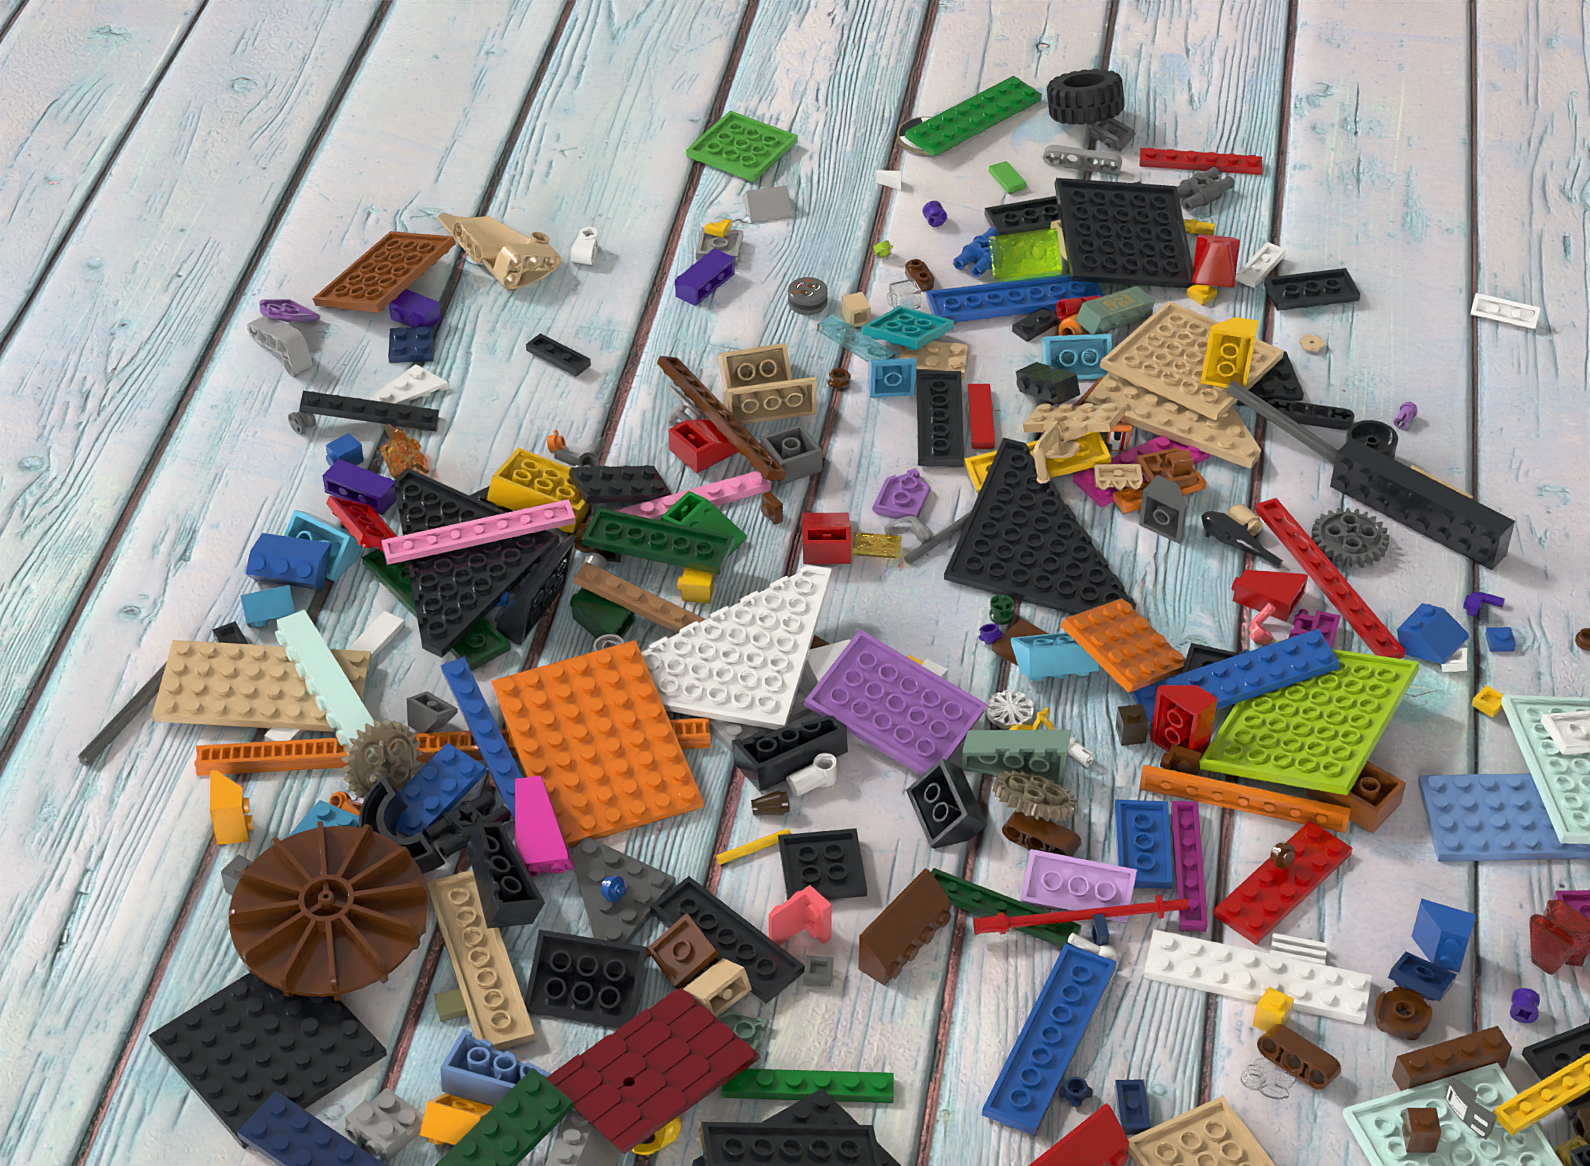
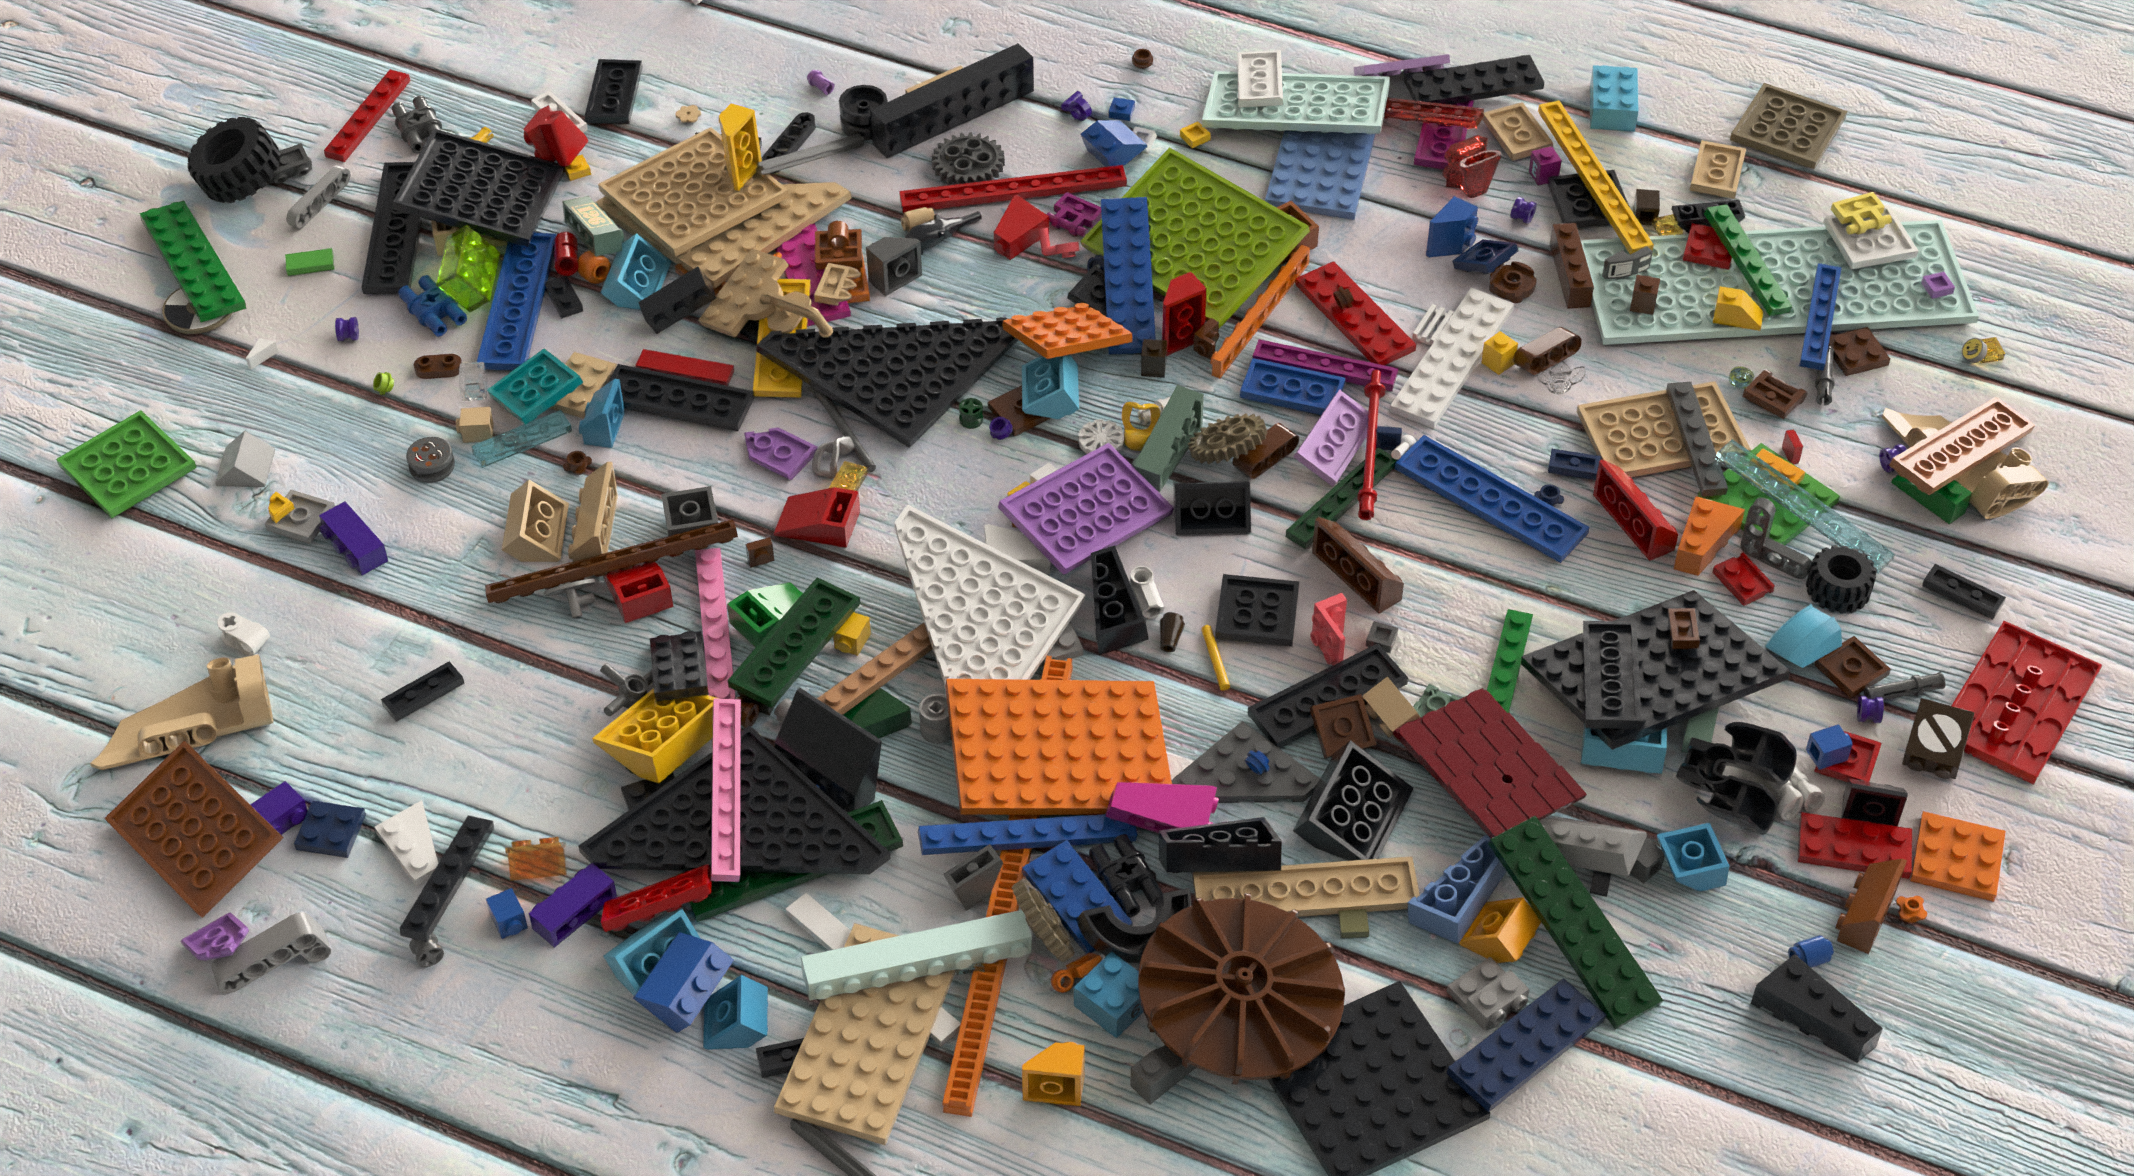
camera: 75 degrees left, 5 degrees up
(555, 442) = (577, 715): orange plate -> none

